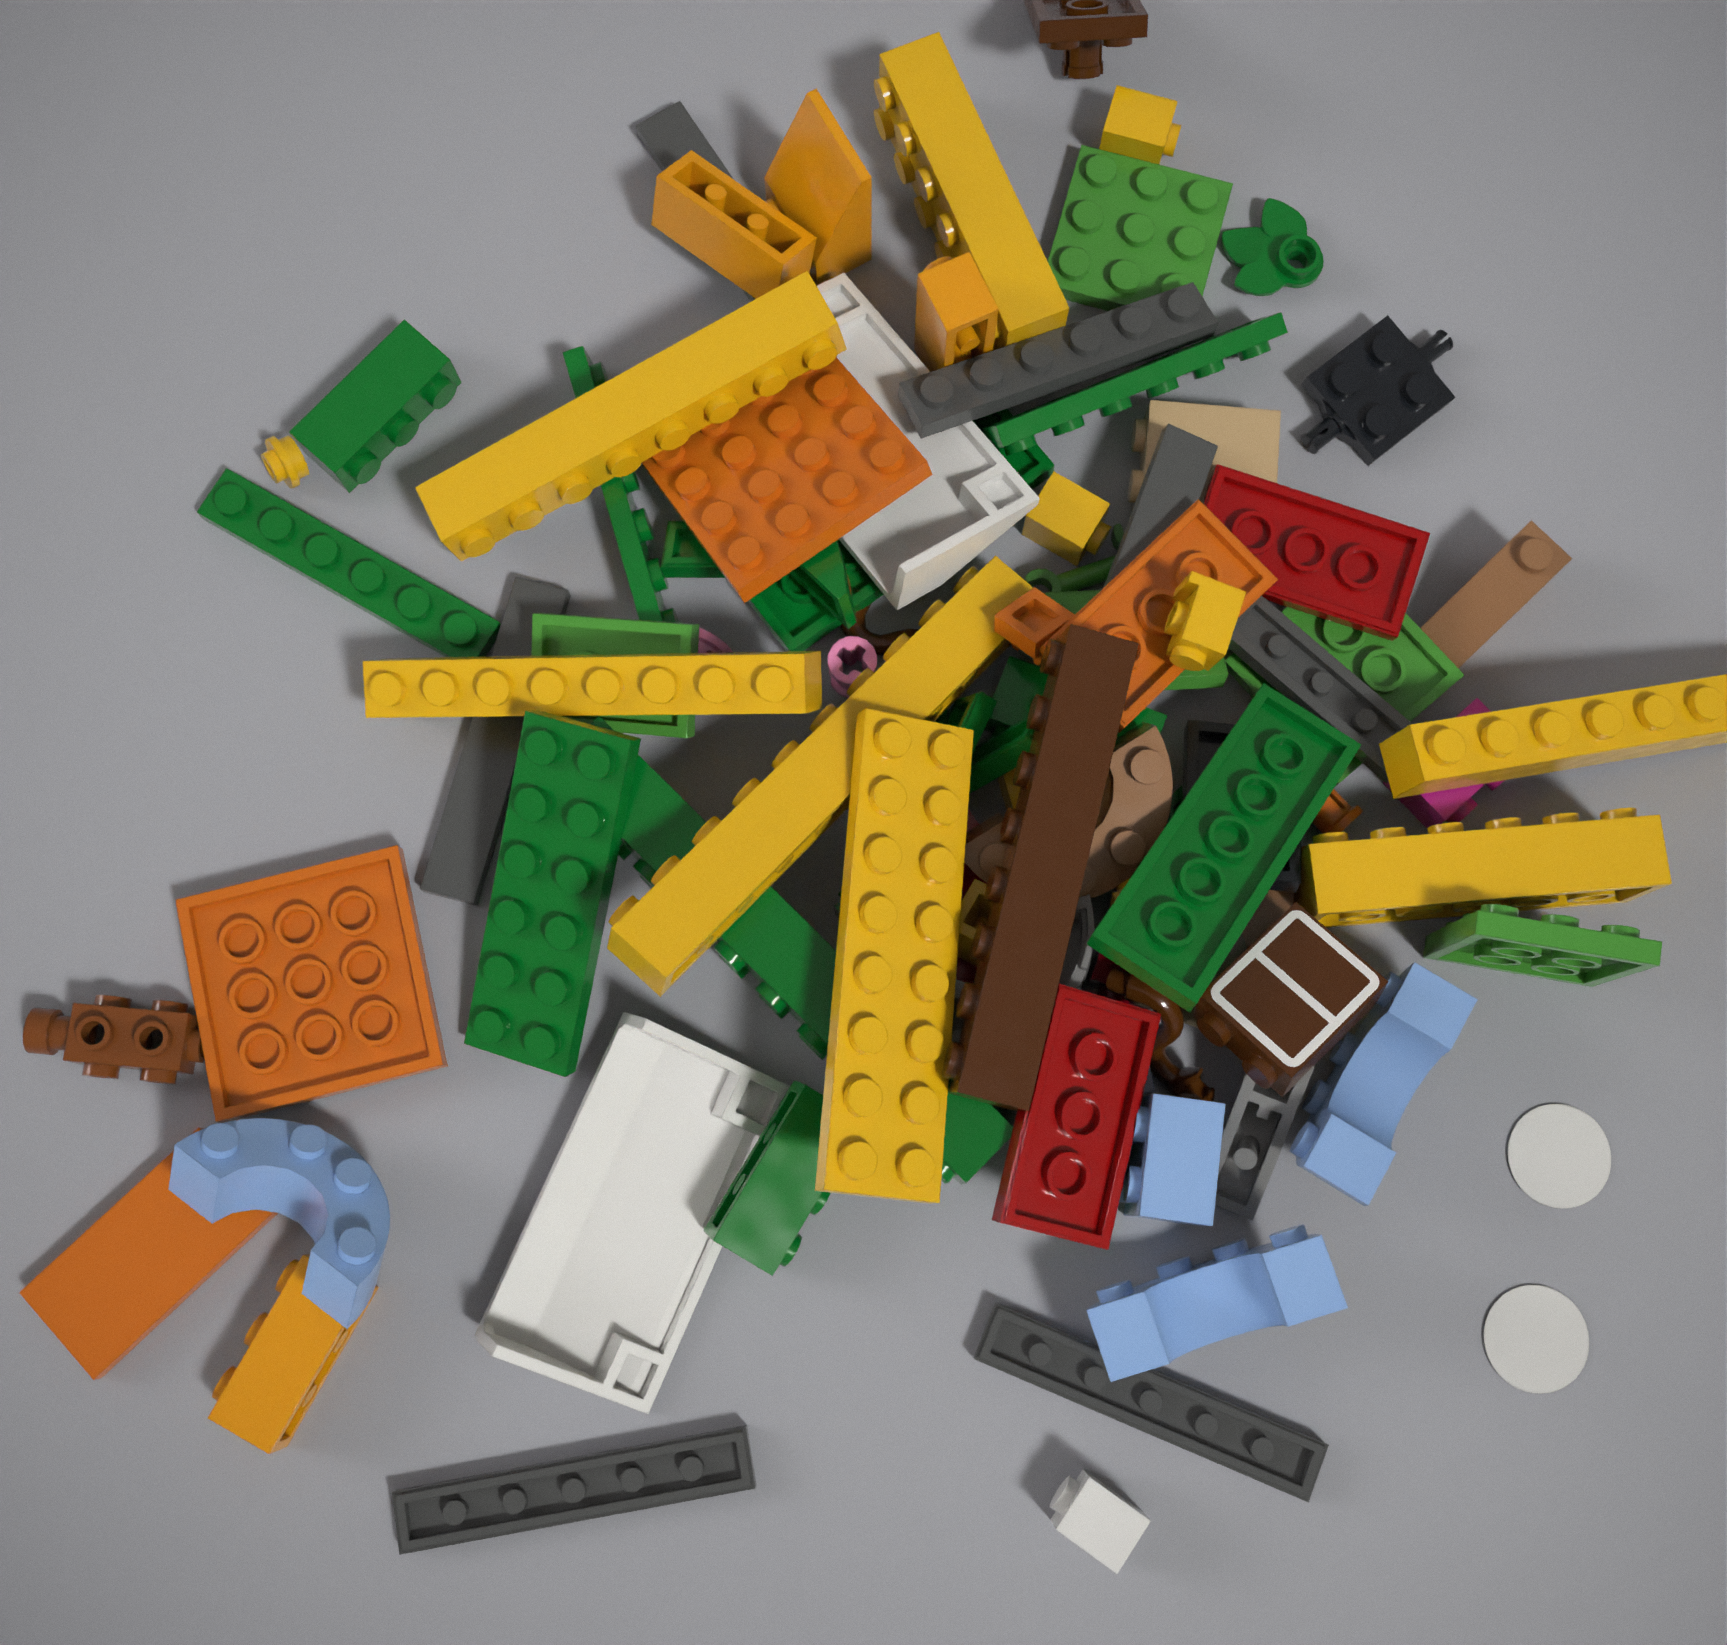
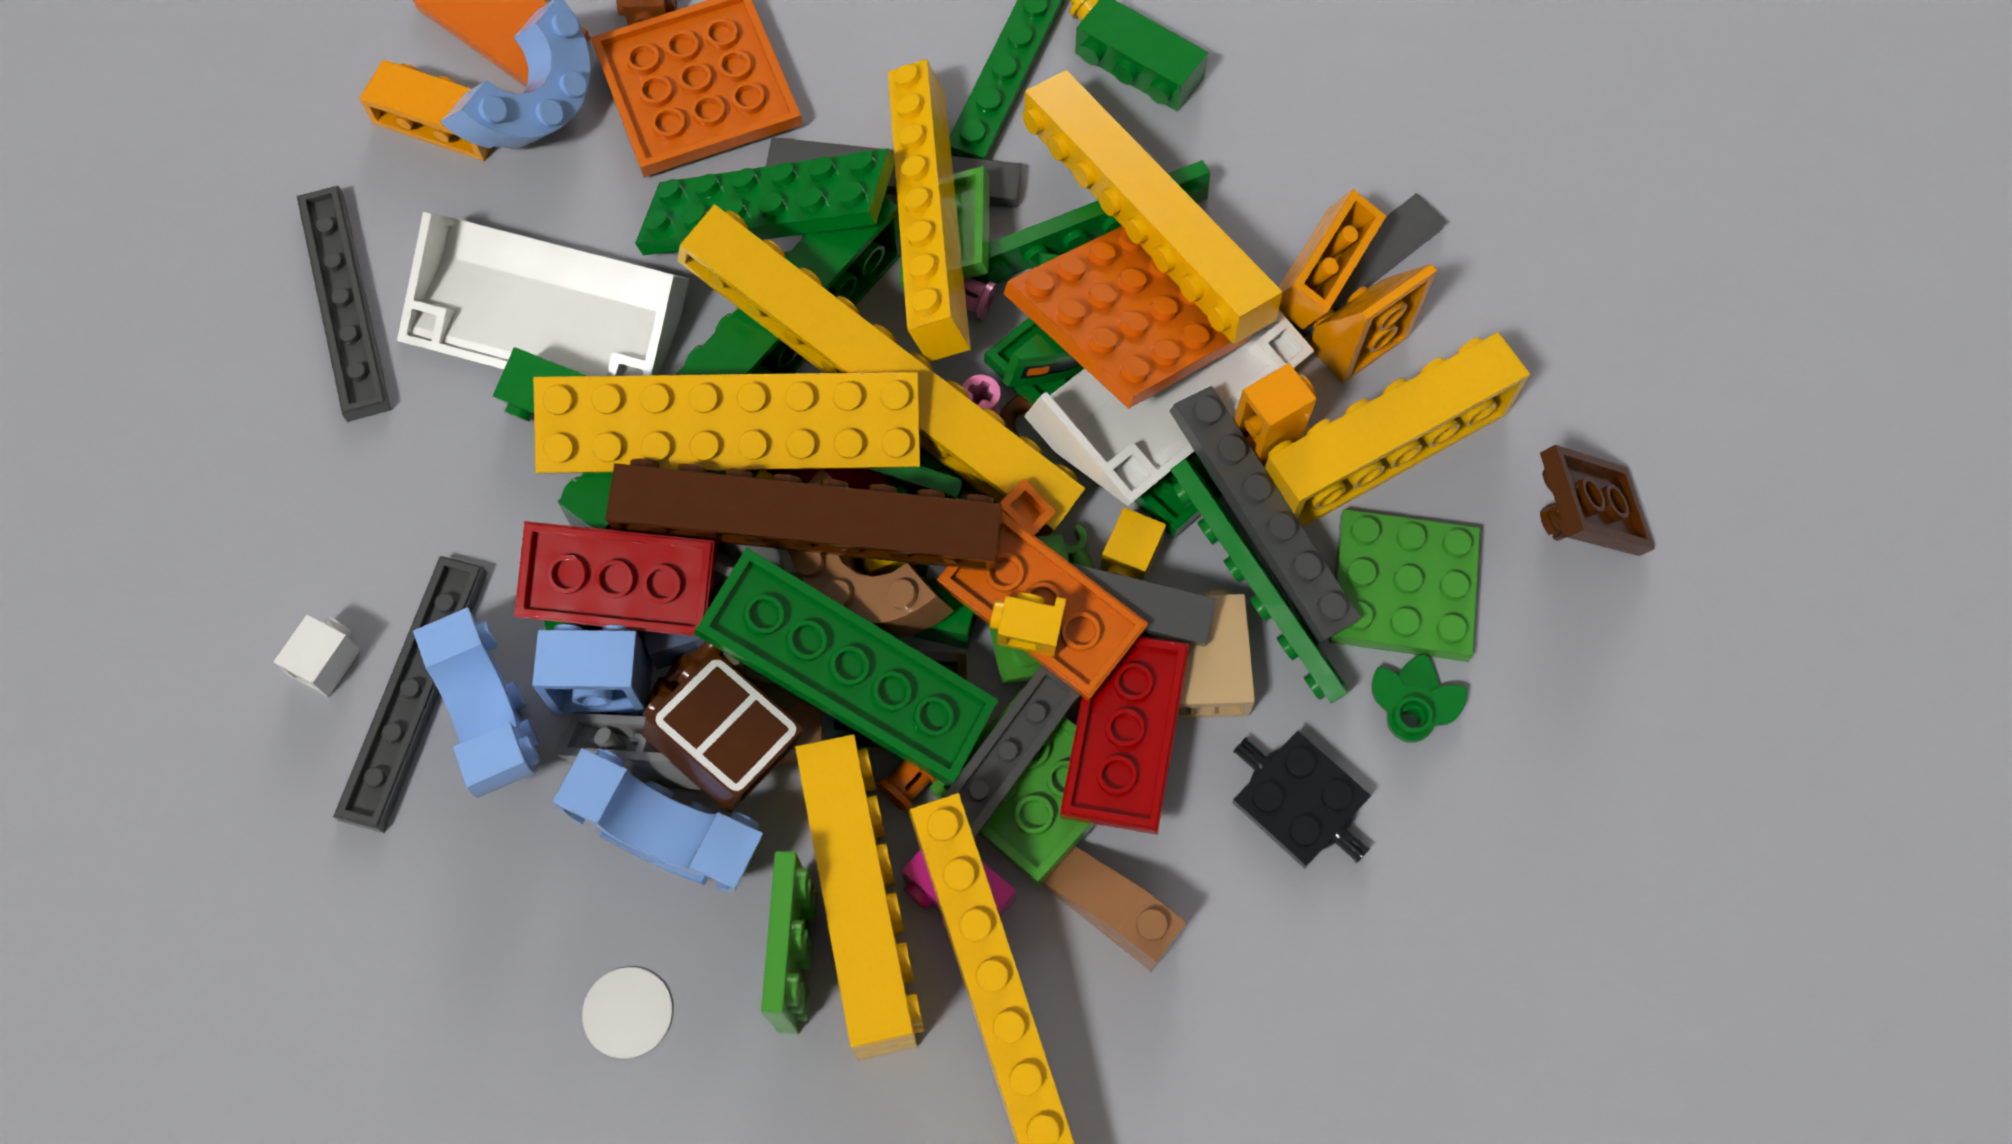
camera: 80 degrees right, 10 degrees down
(1140, 126) = (1504, 569): yellow brick -> none
(1536, 1339) = (470, 1002): white sticker -> none

